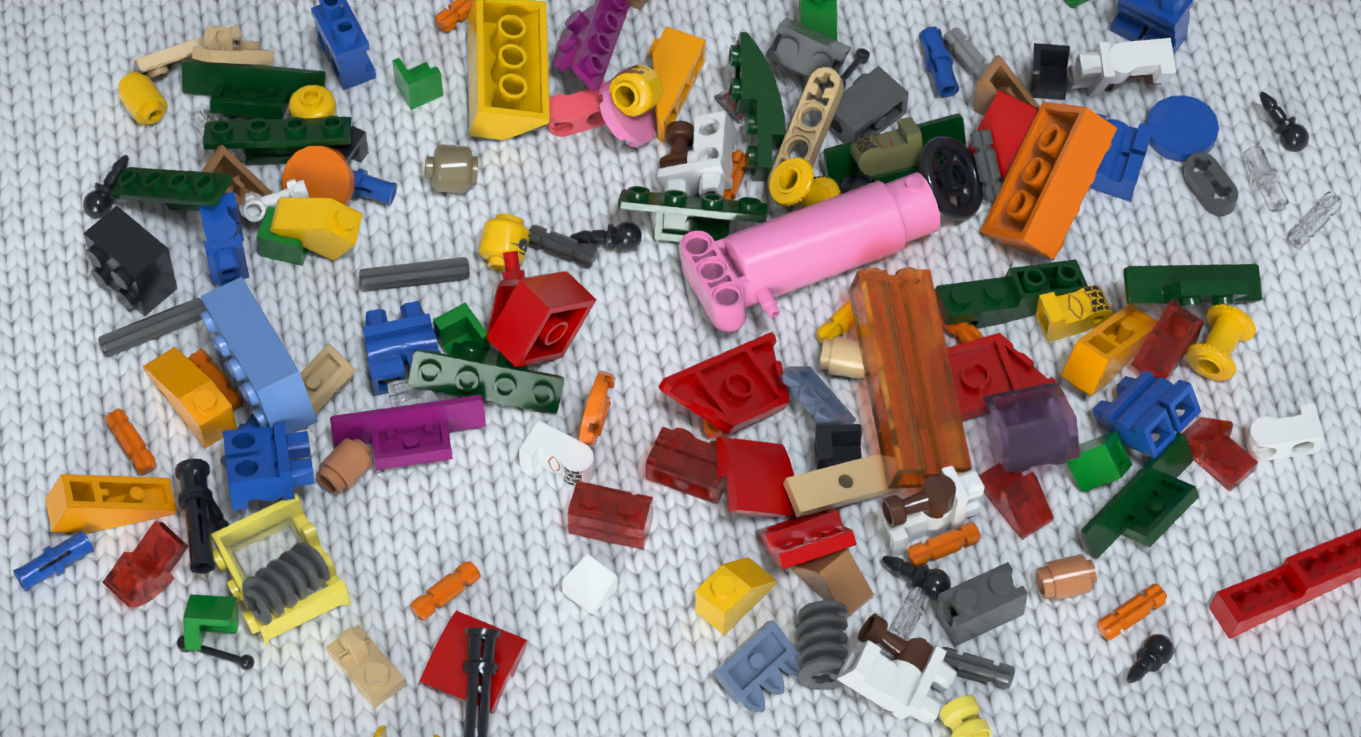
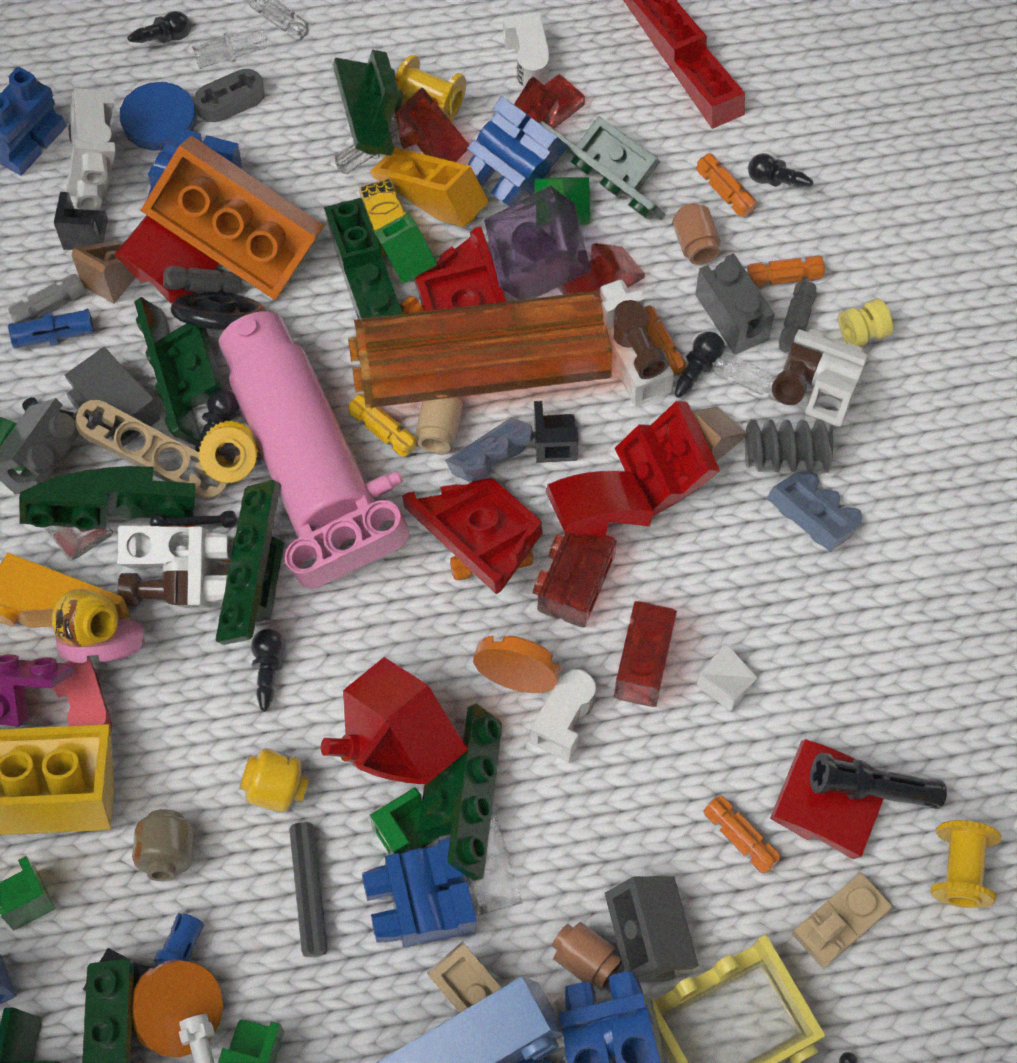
camera: 90 degrees left, 5 degrees up
(284, 580) = (778, 1003): dark grey piece -> none
(312, 102) = (59, 1021): yellow head -> none
(318, 223) = (246, 1002): yellow slope -> none
(360, 510) = (651, 927): none -> dark grey brick
(410, 432) = (546, 880): magenta bracket -> none
(562, 246) = (276, 716): dark grey axle -> none
(732, 593) = (731, 532): yellow slope -> none
(738, 146) = (227, 519): none -> black hinge
(822, 488) = (601, 427): tan tile -> none
(888, 150) = (179, 364): olive leg -> none
(1019, 312) = (405, 247): none -> green panel
(1030, 660) = (786, 270): none -> orange axle

